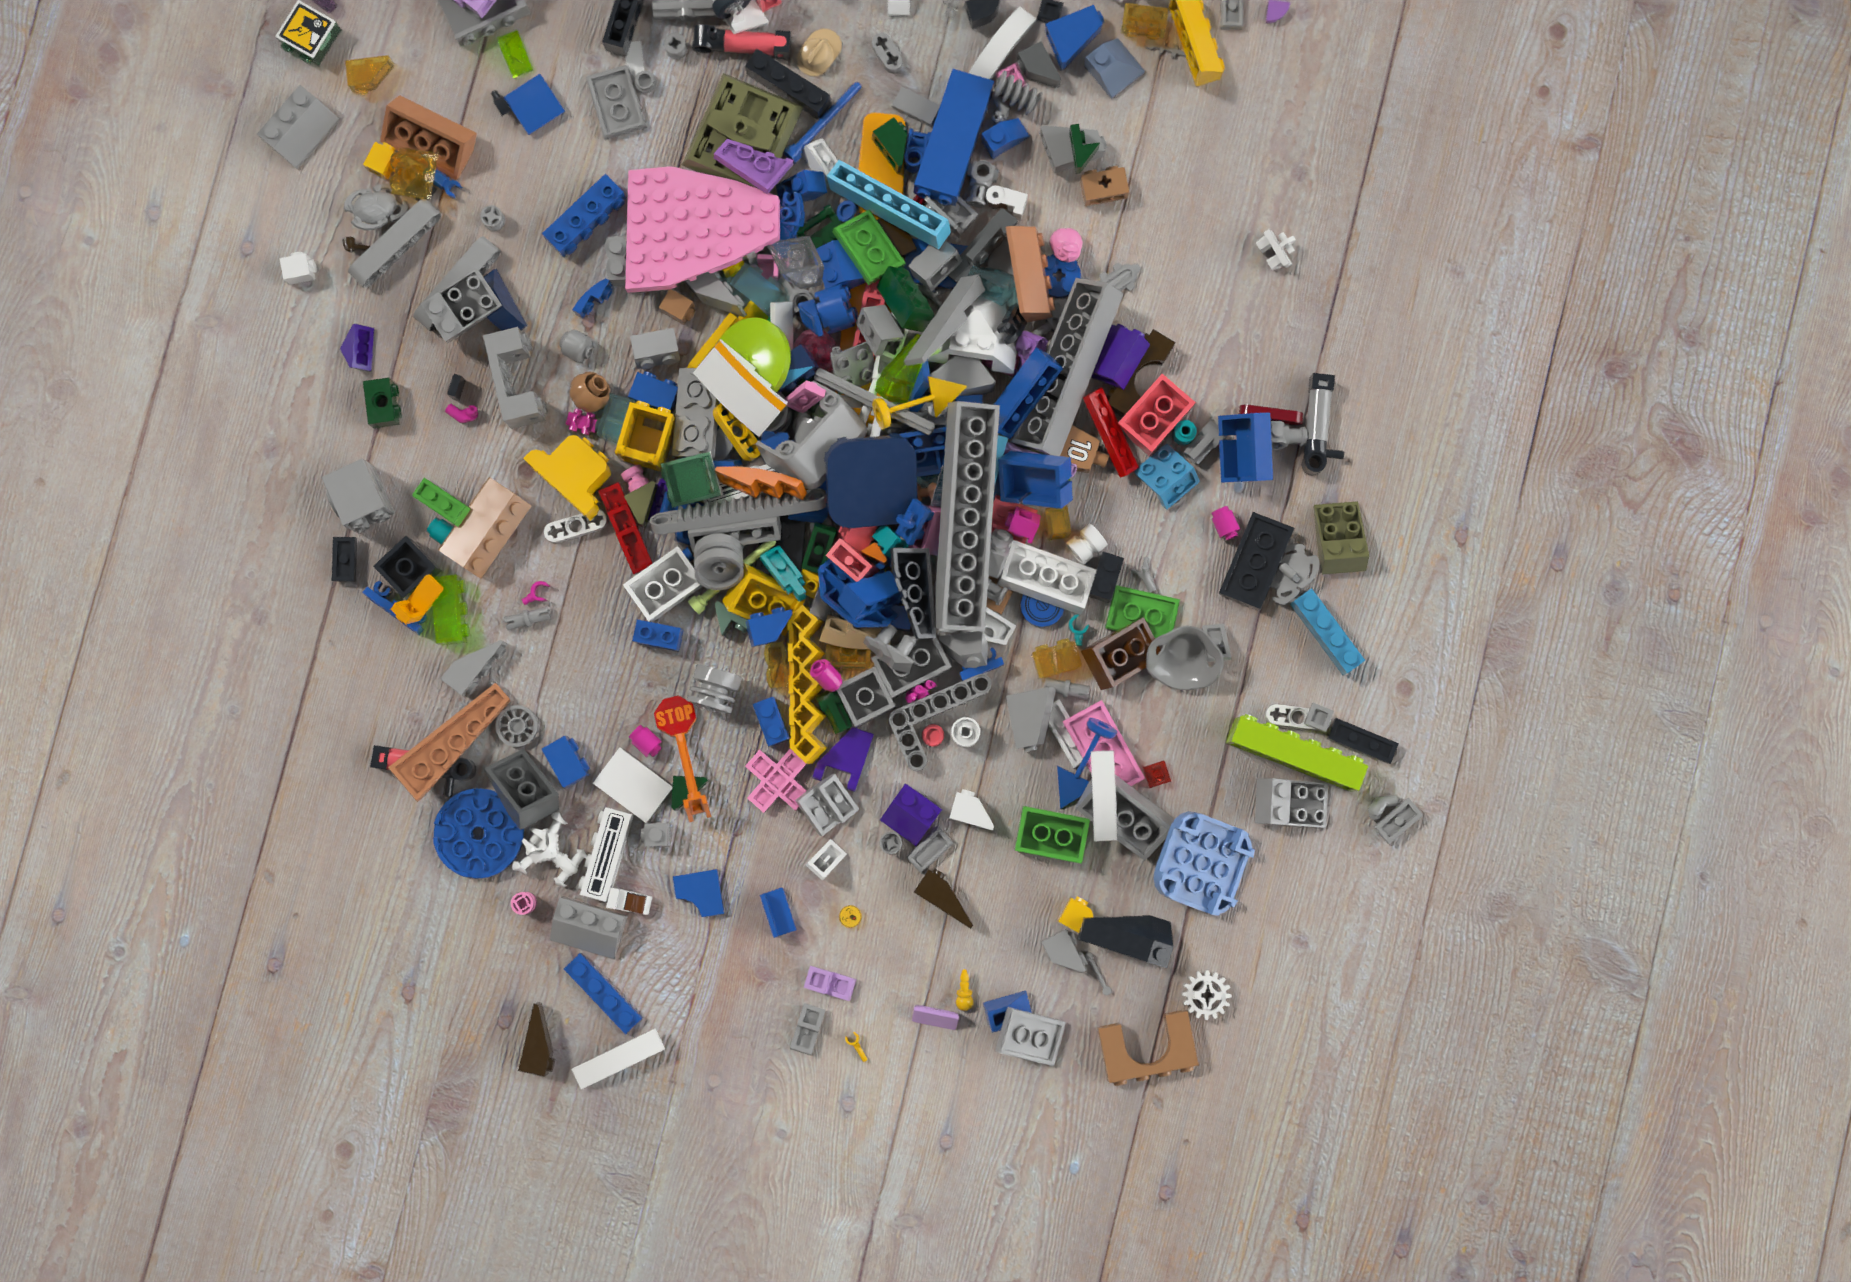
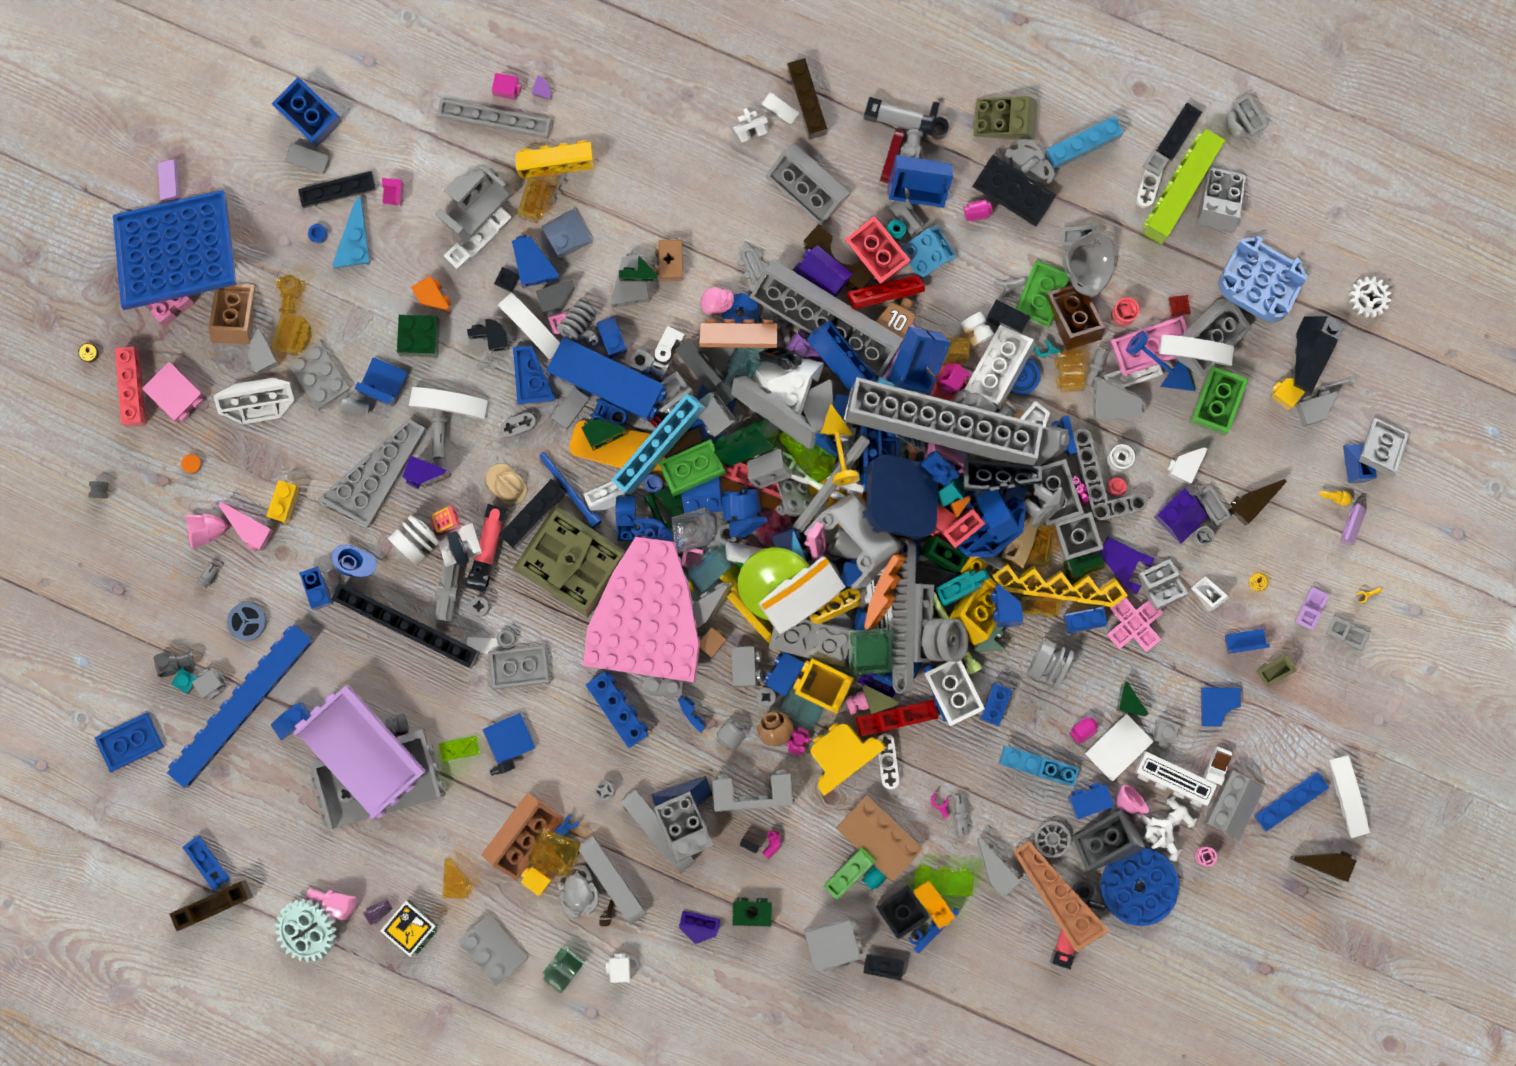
camera: 80 degrees left, 0 degrees up
(287, 207) = (563, 970): none -> clear green brick
(573, 808) = (1131, 801): none -> bright pink hat
(596, 696) = (1038, 766): none -> dark azure slope
(627, 379) = (764, 696): none -> light grey wheel
(675, 718) = (1068, 701): orange piece -> none
(750, 951) = (1276, 670): none -> olive slope
(754, 166) = (605, 552): medium lavender wing -> none
(826, 675) = (1057, 564): dark pink brick -> none
(940, 55) = (530, 378): none -> blue wing
(1137, 710) = (1125, 311): none -> coral wheel
(1178, 1055) = (1416, 329): medium nougat arch -> none
(1221, 324) = (807, 184): none -> light grey slope
(1304, 281) = (780, 108): none -> white sticker
(1326, 302) = (807, 98): none -> dark brown arch

